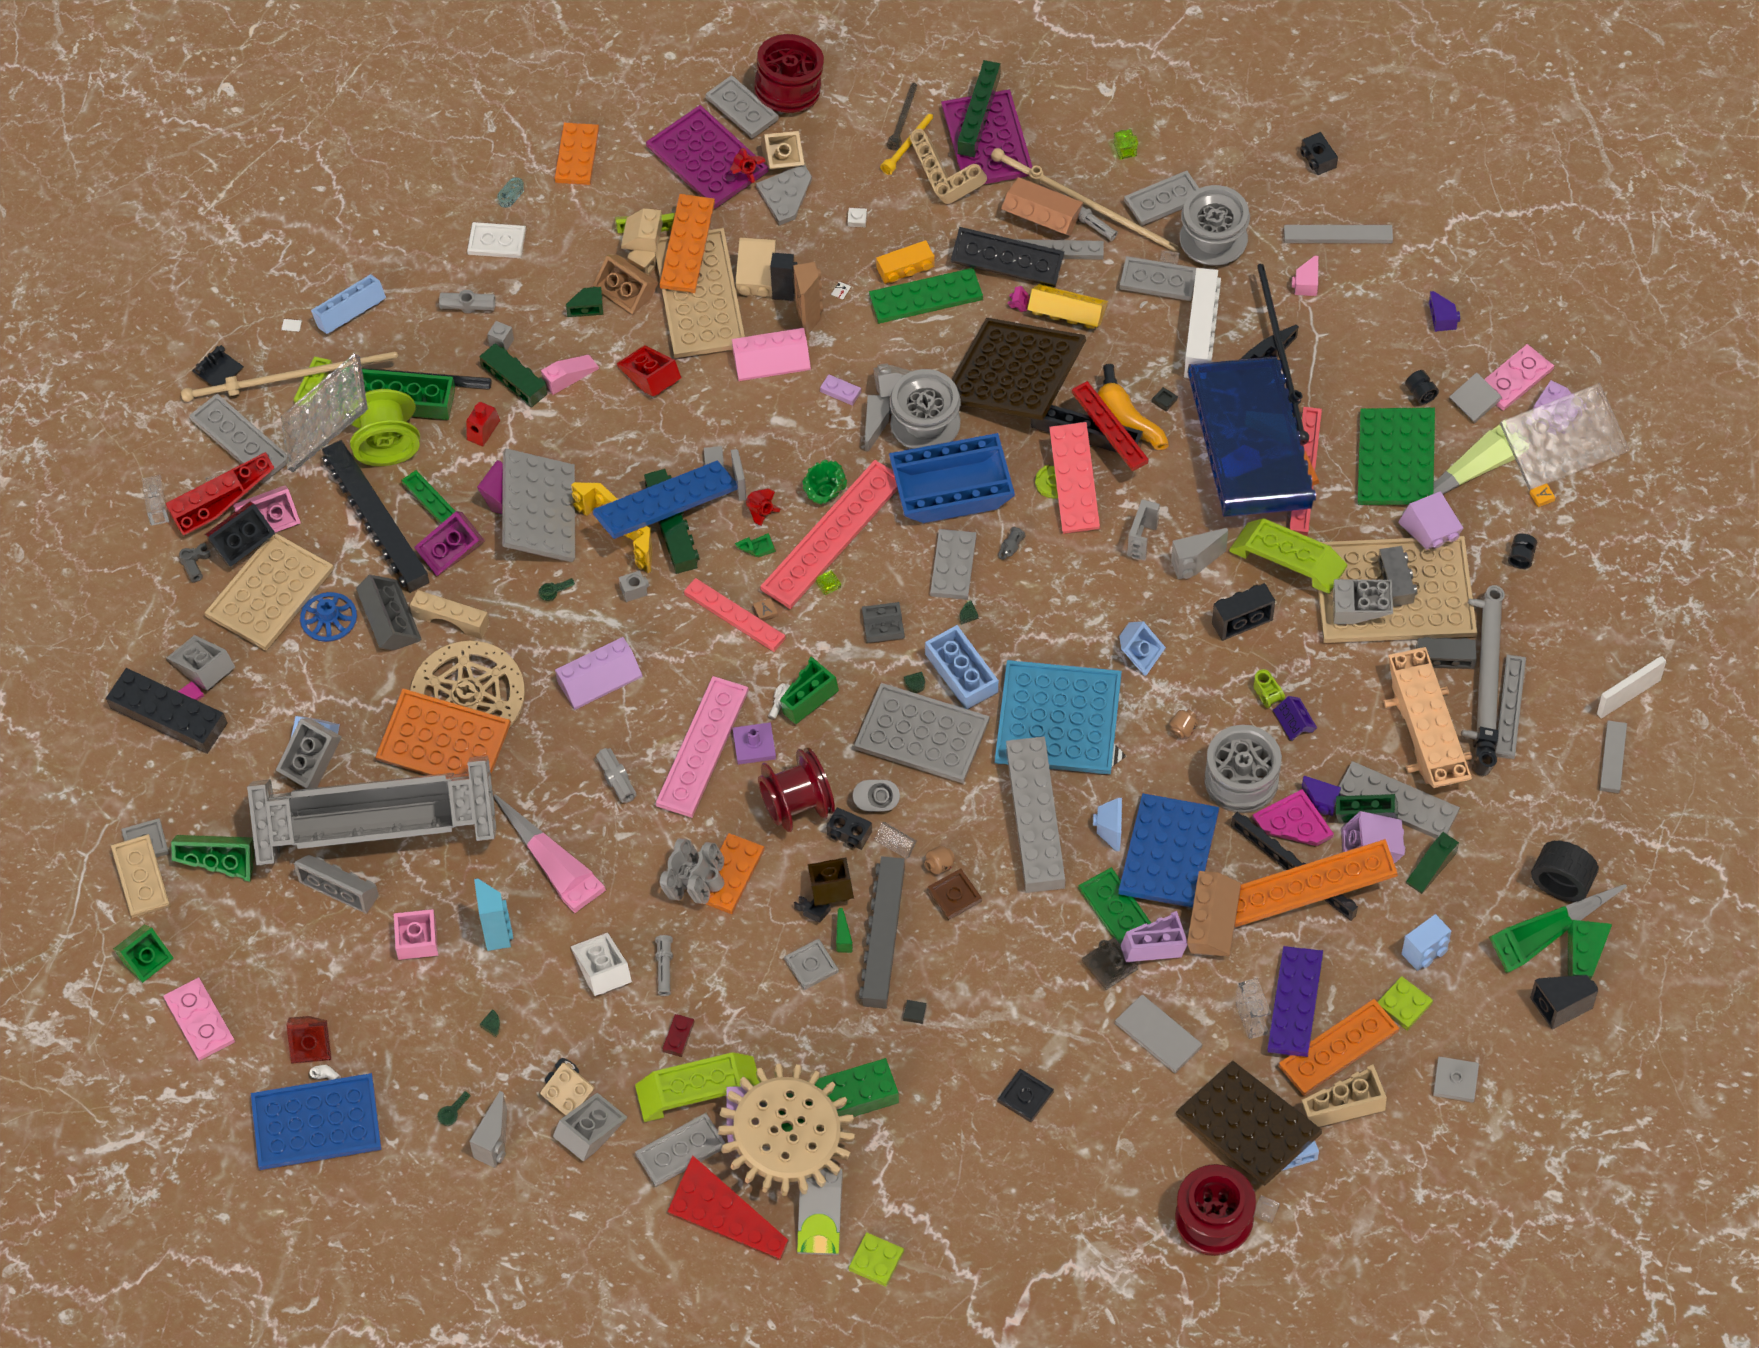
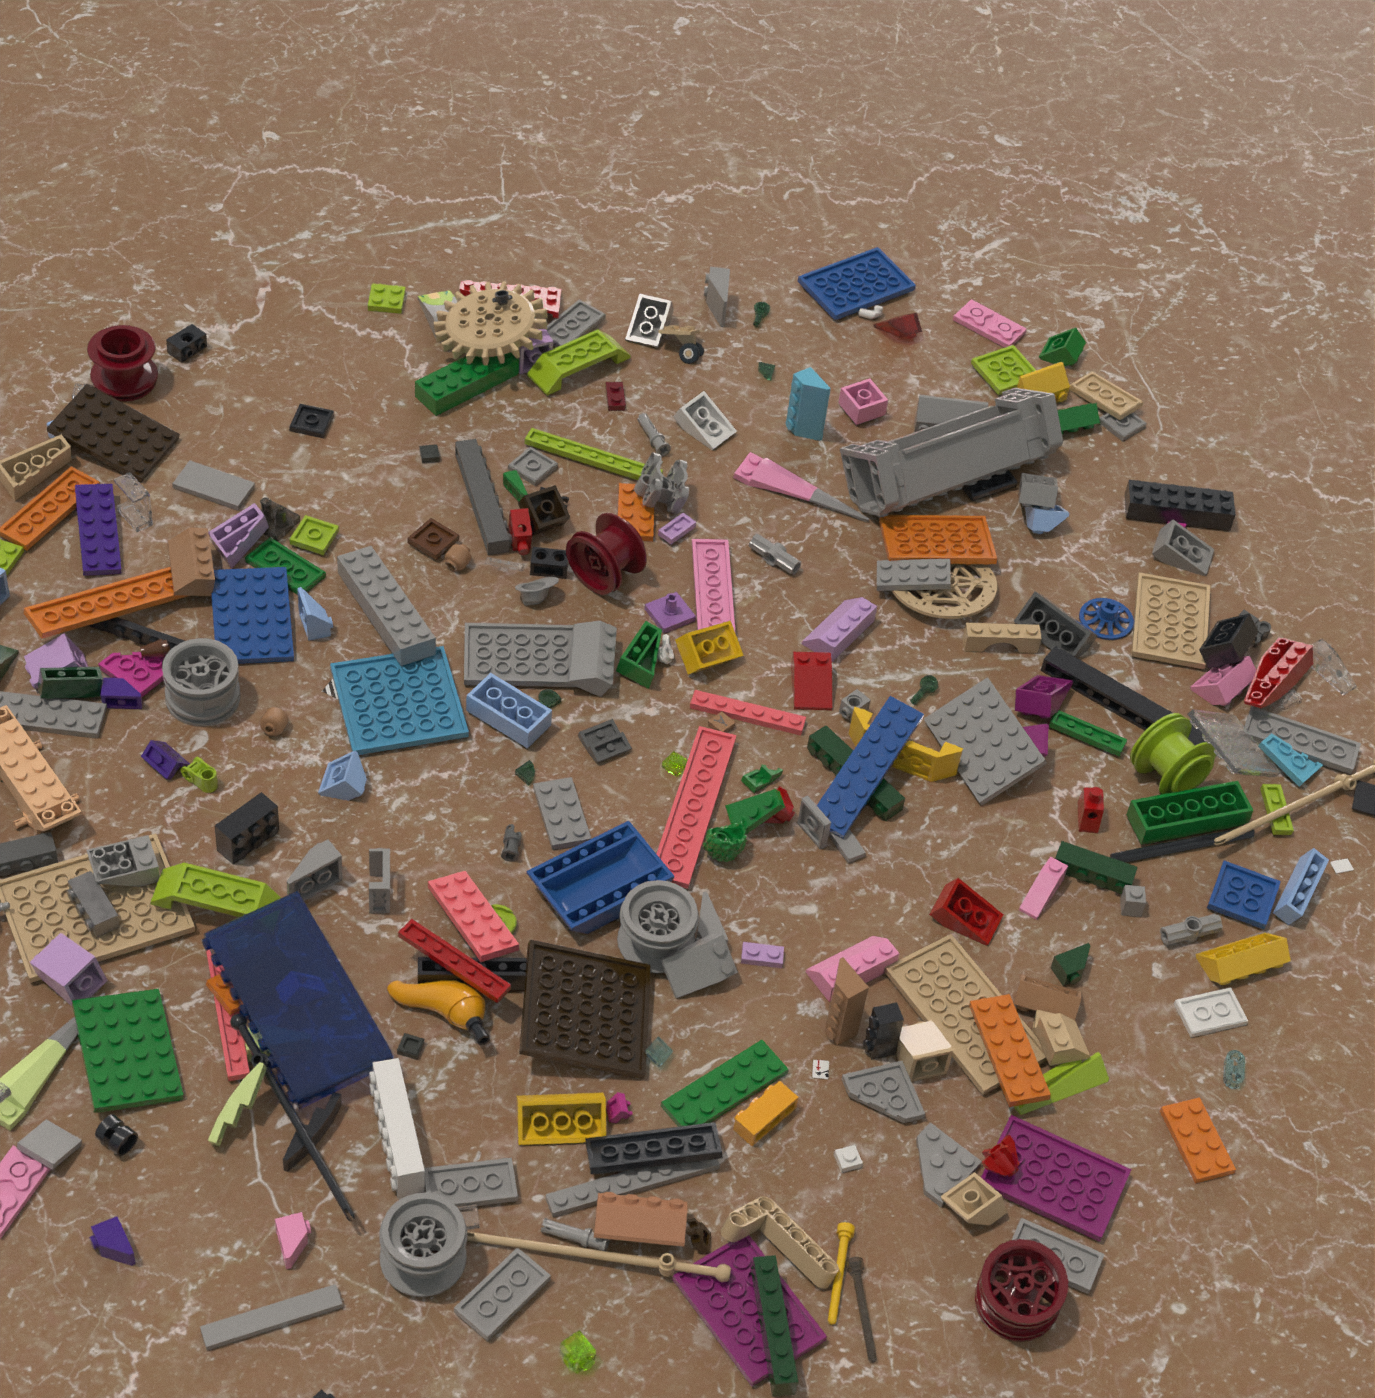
camera: 150 degrees right, 10 degrees down
(209, 896) = (1049, 380): none -> yellow slope
(225, 943) = (1002, 368): none -> lime plate
(266, 418) = (1294, 764): none -> medium azure wing
(399, 319) = (1244, 894): none -> blue plate
(439, 269) = (1244, 957): none -> yellow slope
(496, 696) = (913, 574): none -> light grey plate
(657, 625) = (812, 680): none -> red slope
(701, 833) = (676, 528): none -> lavender plate
(743, 953) = (584, 454): none -> lime plate
(744, 674) = (709, 647): none -> yellow slope
(766, 1128) = (502, 297): none -> black plate
(788, 497) = (755, 809): none -> green wing
(804, 248) = (885, 1090): none -> light grey plate
(857, 700) = (592, 656): none -> light grey slope
(865, 860) = (520, 535): none -> red torso
(967, 332) = (658, 1051): none -> clear light blue tile
(1001, 189) = (699, 1235): none -> dark brown plate
(1075, 933) = (314, 535): none -> lime plate
(1127, 1253) = (186, 343): none -> black brick
(1275, 823) = (155, 649): none -> reddish brown cone
(1318, 374) = (242, 1097): none -> yellowish green slope

